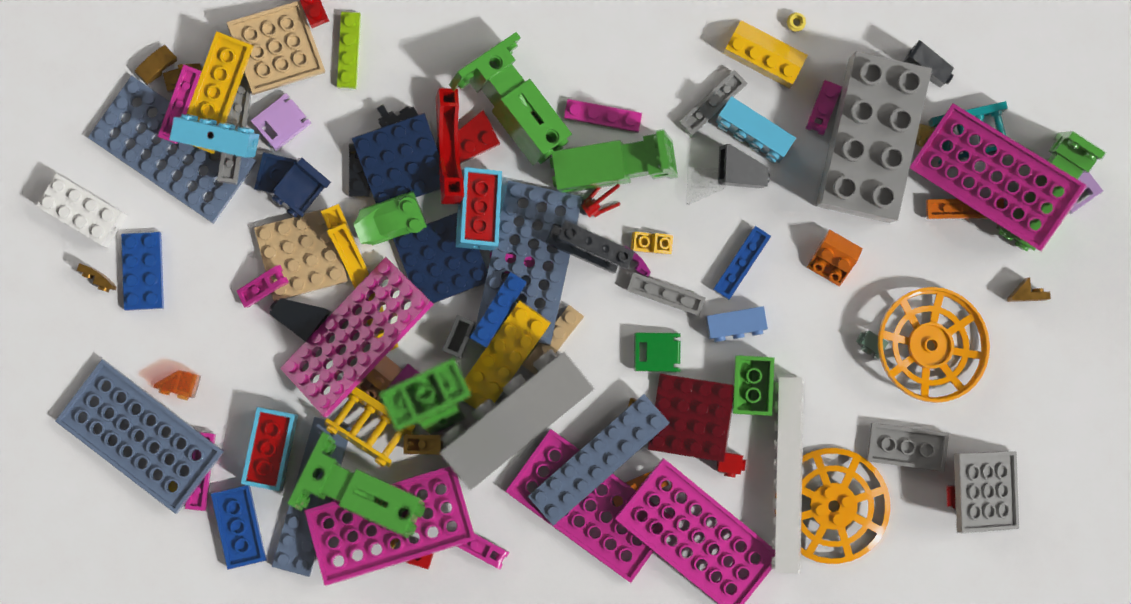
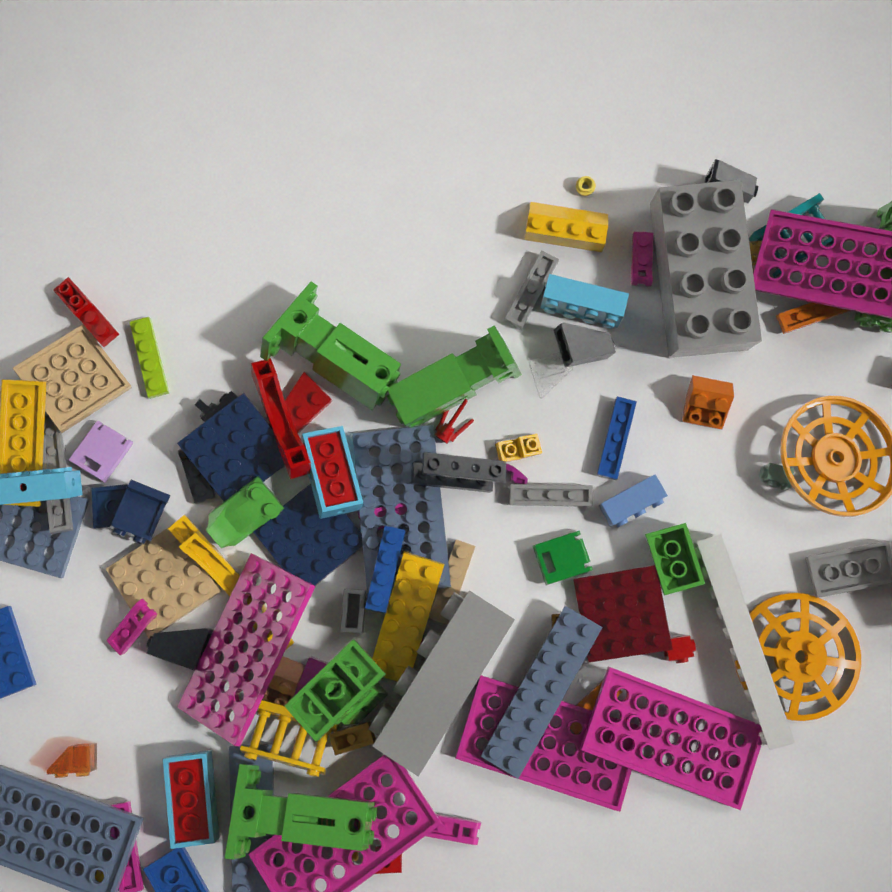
camera: 15 degrees left, 5 degrees down
(603, 115) = (426, 338): dark pink plate -> none

